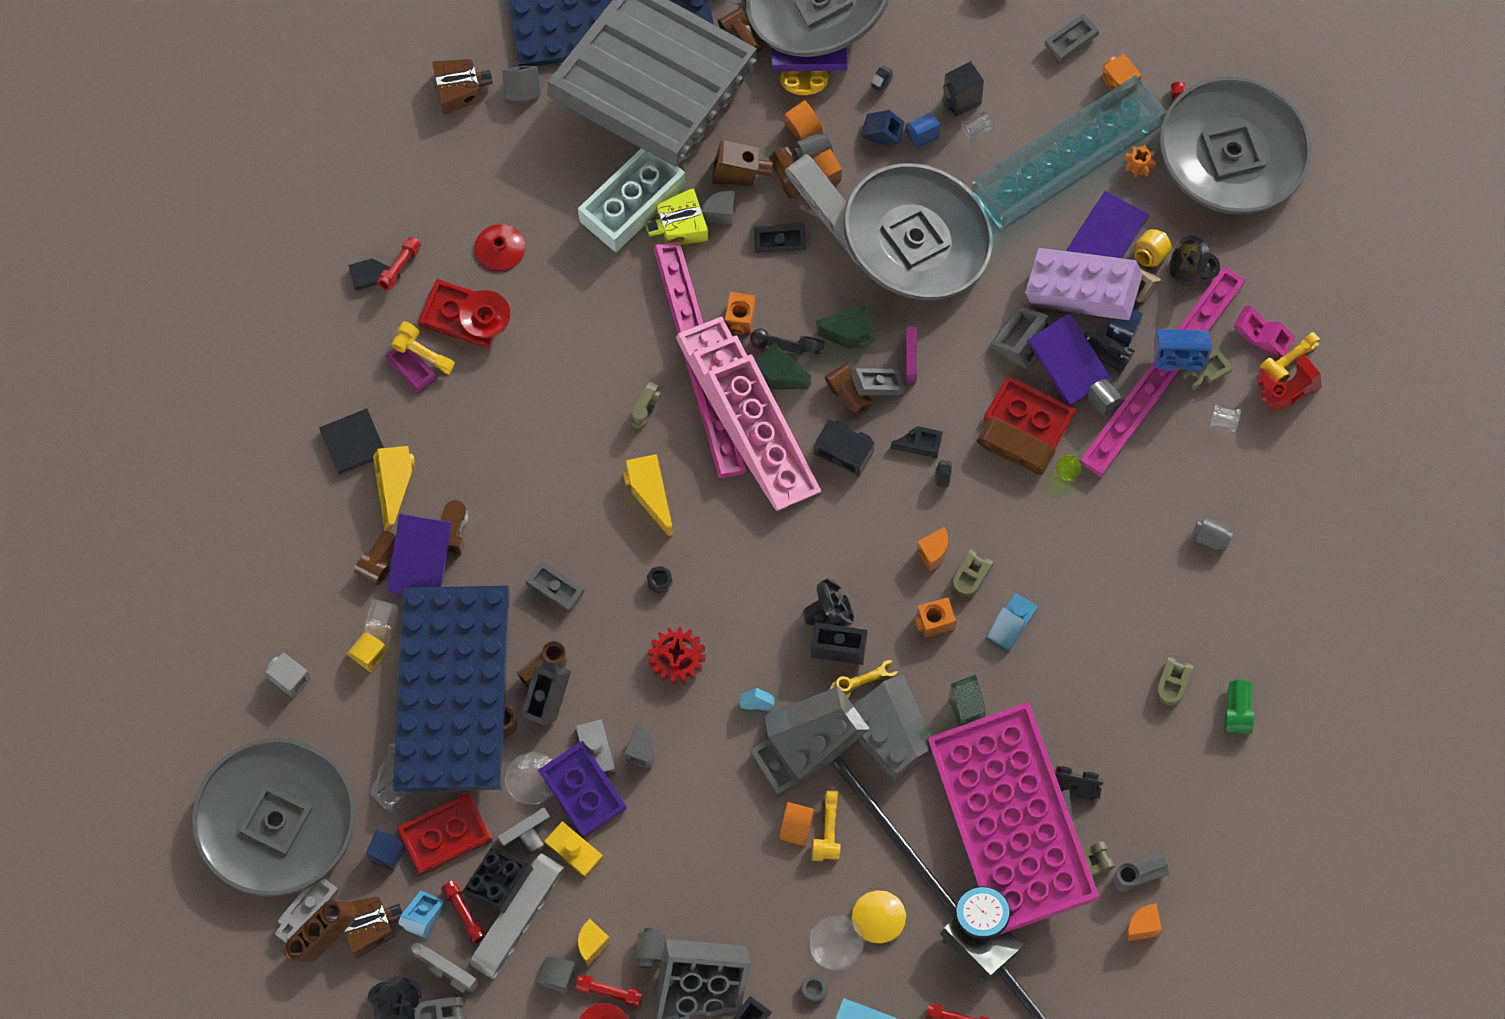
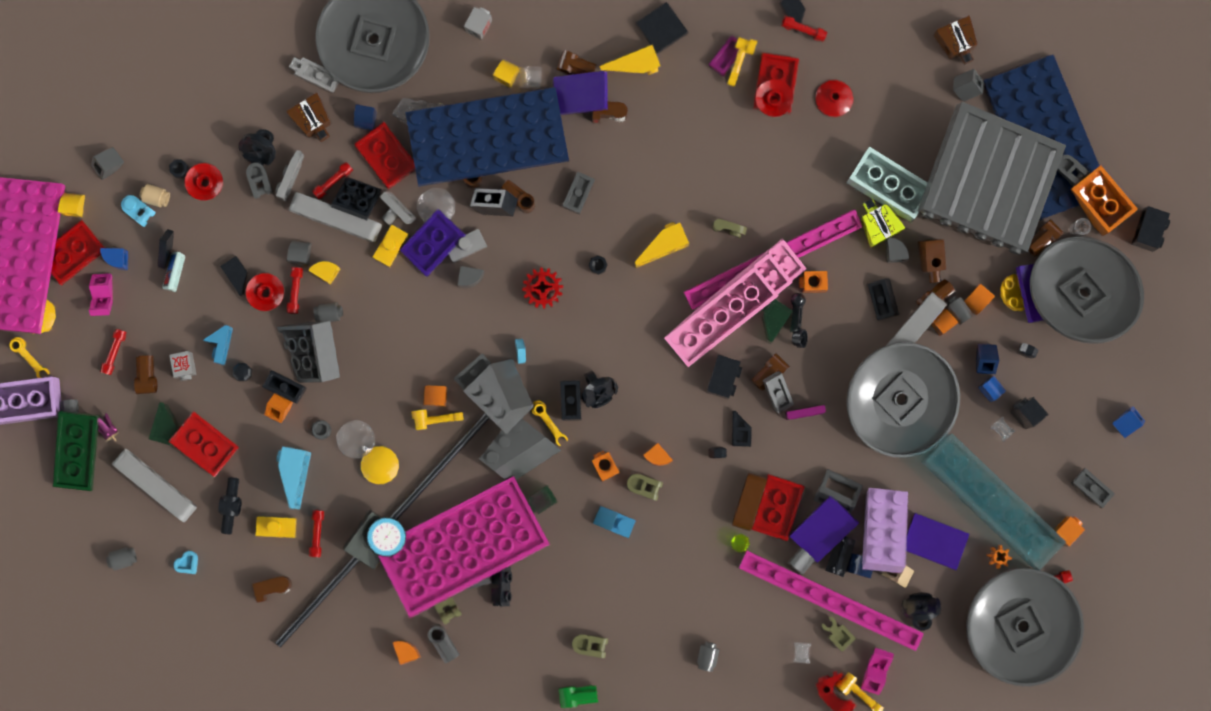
camera: 75 degrees right, 15 degrees up
(309, 933) = (296, 86): reddish brown beam -> none
(422, 914) = (324, 152): dark azure slope -> none
(848, 328) = (818, 363): clear green slope -> none
(1152, 248) = (928, 577): yellow head -> none
(1182, 349) = (846, 612): blue slope -> none

